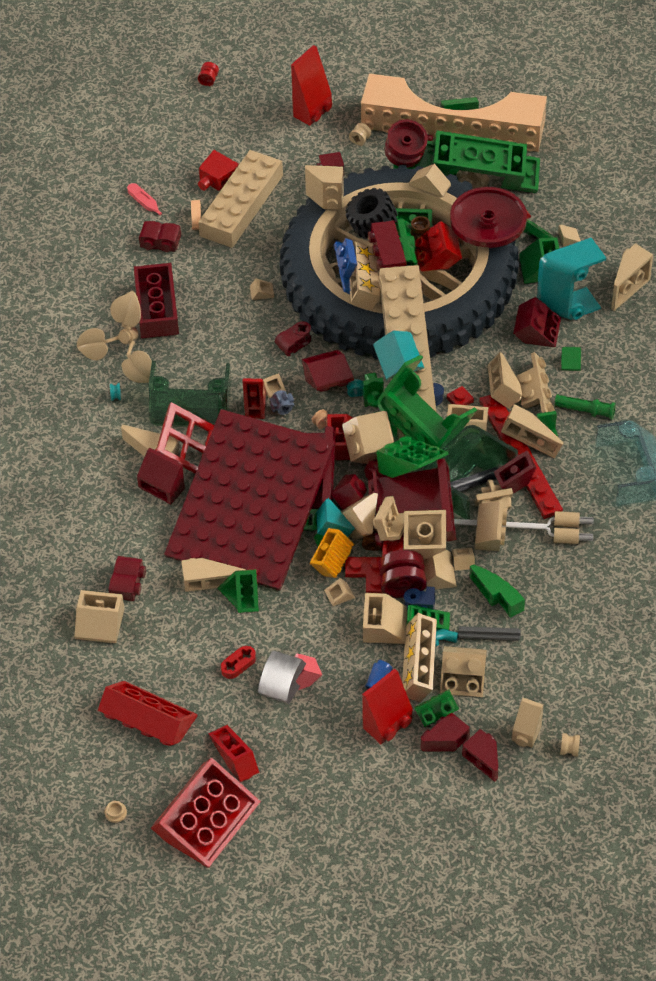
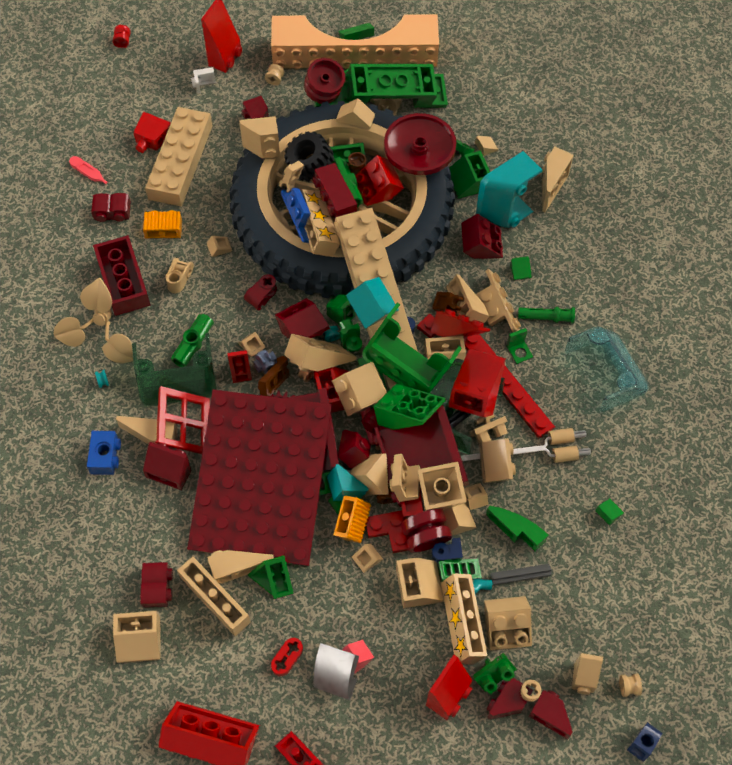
camera: 15 degrees left, 10 degrees up
(102, 456) = (101, 442): none -> blue brick
(180, 596) = (214, 596): none -> tan brick
(195, 213) = (138, 170): light nougat beam -> none
(208, 260) = (162, 224): none -> light orange brick
(213, 310) = (178, 275): none -> tan piece
(213, 369) = (197, 332): none -> green piece
(284, 125) = (203, 77): none -> white bracket
(287, 414) = (274, 377): none -> reddish brown plate
(329, 399) = (316, 354): none -> tan slope
(348, 226) = (292, 173): none -> tan plate
(368, 364) = (340, 309): none -> green slope
(378, 671) = (428, 643): blue cone -> none
(466, 718) = (537, 690): none -> tan bush
(478, 395) = (448, 325): none -> red slope
(481, 376) = (446, 300): none -> reddish brown plate
(488, 449) = (477, 383): none -> red slope
(516, 473) = (508, 398): dark red slope -> none
(531, 431) = (503, 346): tan slope -> none
(569, 794) = (645, 742): none -> dark blue leg
(596, 594) = (609, 511): none -> green slope

